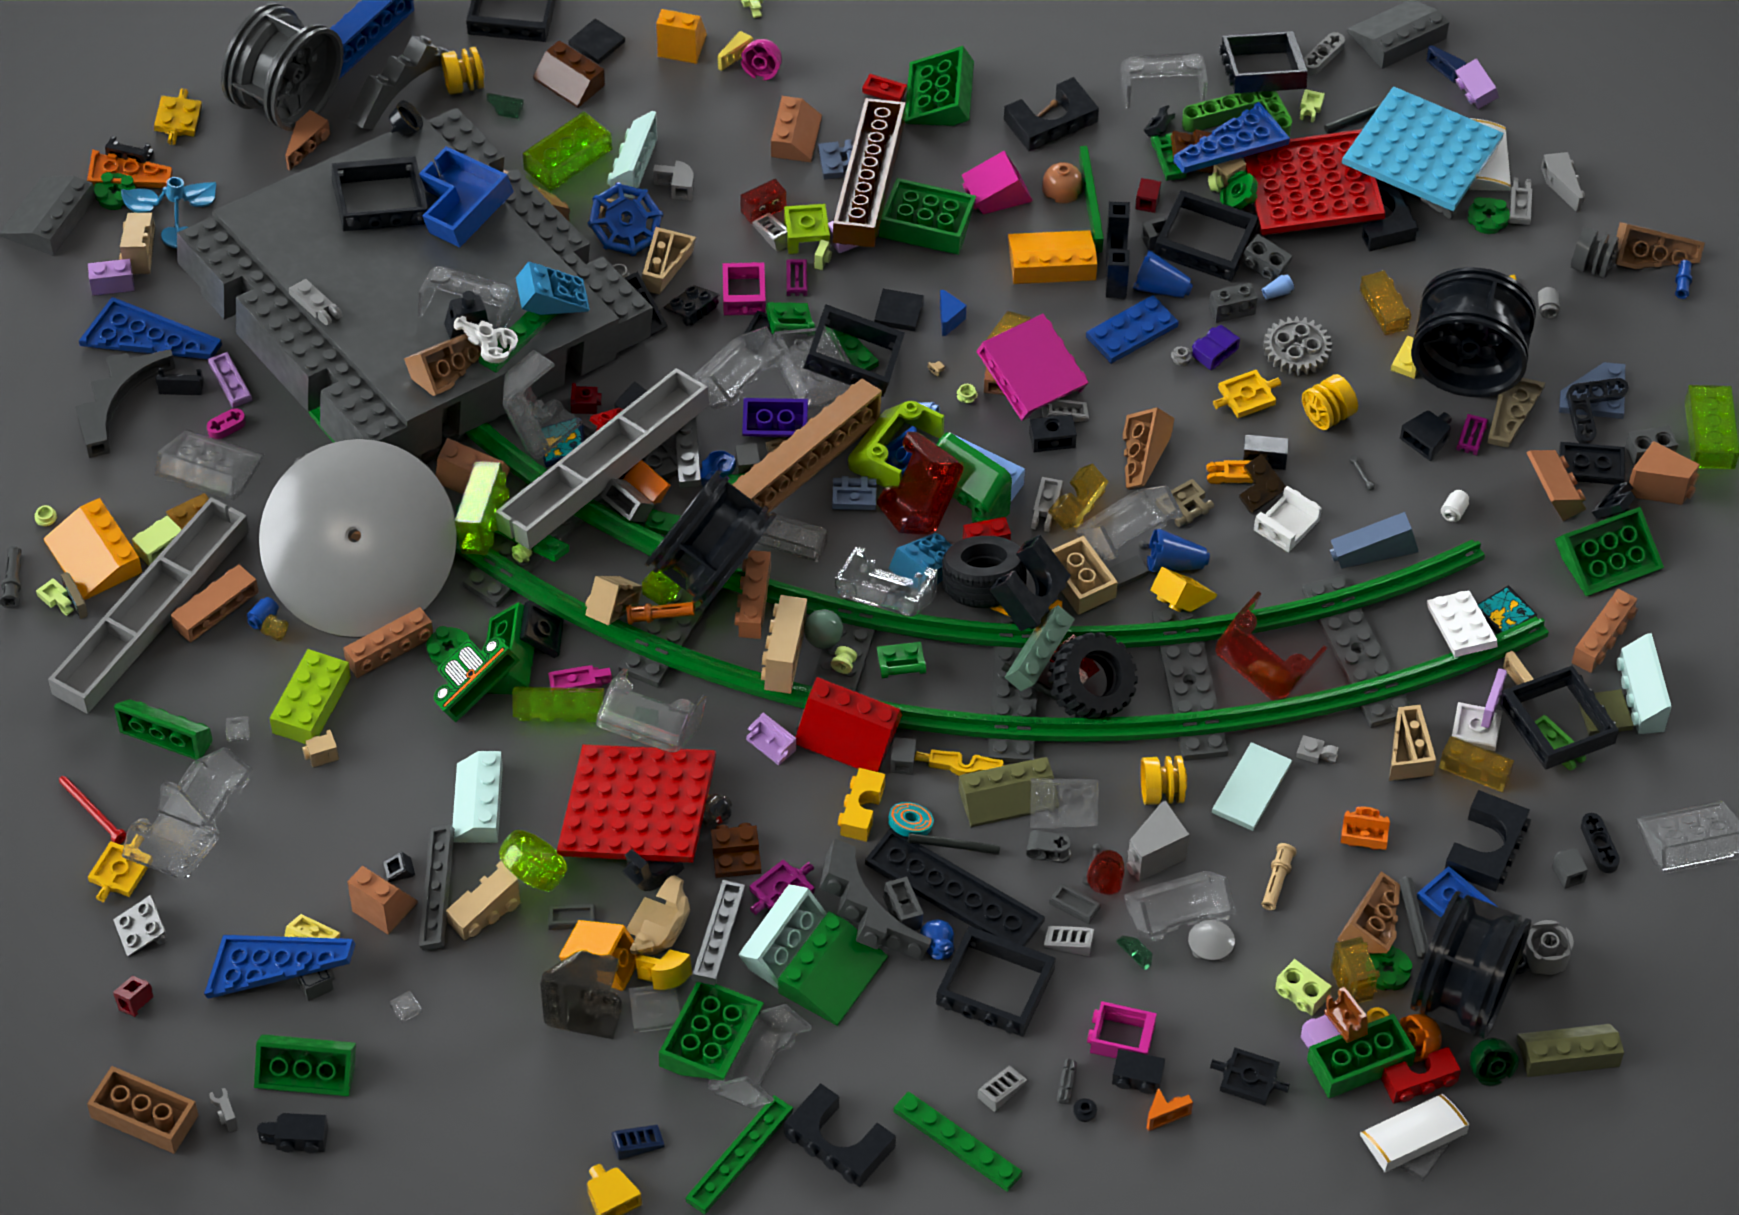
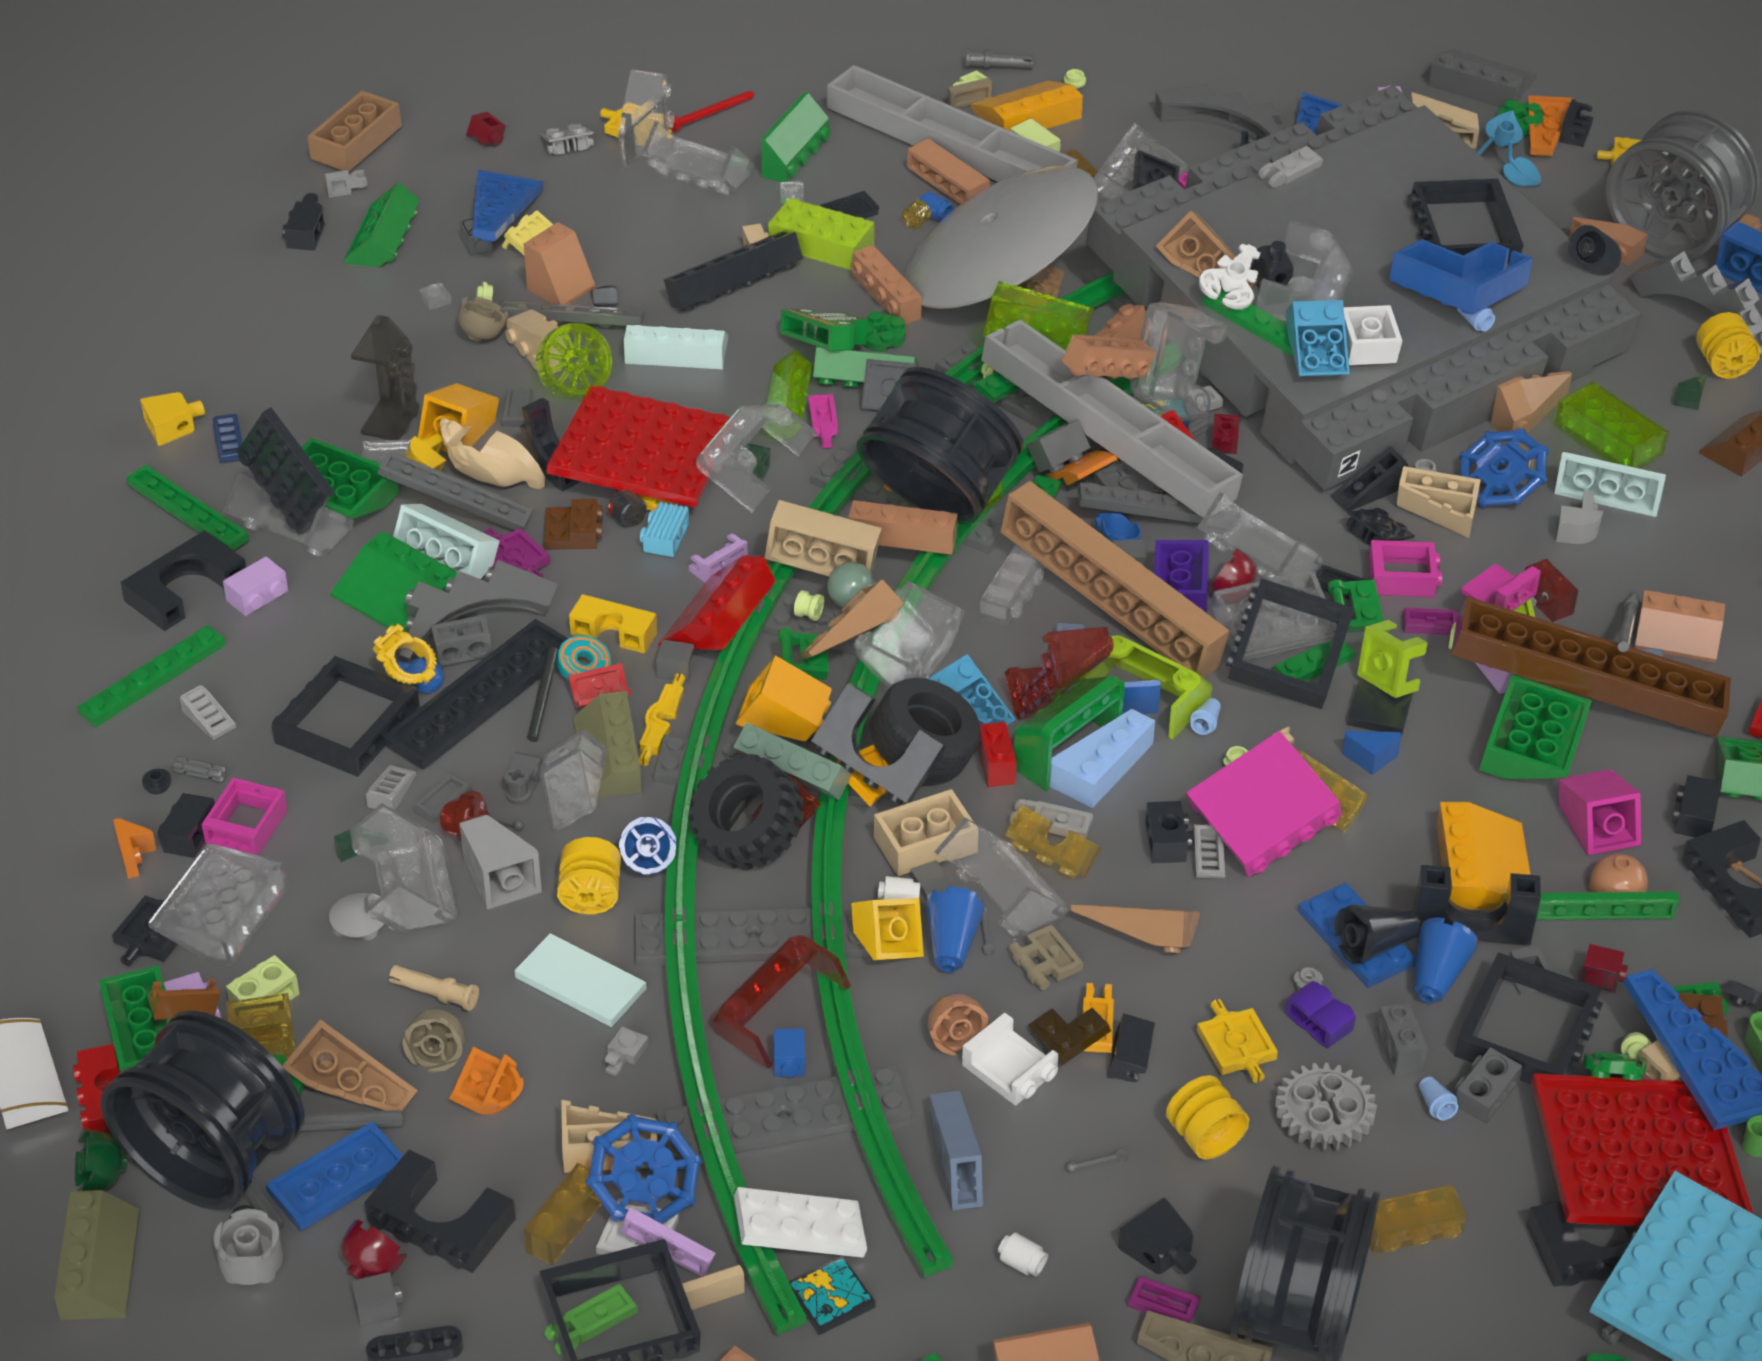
camera: 95 degrees right, 10 degrees down
(221, 445) = (1151, 168): none -> black tile
(256, 686) = (856, 205): none -> black window
(374, 758) = (733, 269): none -> black brick
(408, 961) = (485, 291): none -> yellowish green plate
(460, 949) = (481, 318): none -> dark tan cylinder
(536, 250) = (1372, 335): none -> white brick
(555, 443) = (1108, 357): none -> nougat brick
(740, 780) = (665, 529): none -> medium azure brick
(751, 1035) = (284, 471): none -> black plate
(769, 385) = (1236, 572): none -> dark red cylinder
(776, 154) = (1631, 606): none -> dark grey bar
(792, 217) = (1503, 588): none -> dark pink bracket
(842, 1077) = (255, 586): none -> lavender brick
(870, 292) = (1386, 659): none -> lime panel
(878, 614) = (867, 609): none -> medium nougat wedge
(938, 940) = (396, 639): none -> yellow piece
(945, 803) = (591, 683): none -> red bracket
(970, 664) = (785, 701): none -> light orange slope
(985, 133) = (1697, 806): none -> black brick
(1124, 751) = (646, 845): none -> cylinder
(1137, 592) = (898, 888): none -> white brick
(1152, 307) = (1373, 930): none -> black cone
(1226, 1024) = (221, 903): none -> clear slope
(1263, 548) = (955, 1022): none -> nougat cylinder
(1305, 643) = (789, 1052): none -> blue brick
(1334, 862) = (434, 1040): none -> dark tan cylinder
(1448, 710) = (639, 1153): none -> blue plate
(1540, 870) = (369, 1252): none -> dark red cylinder

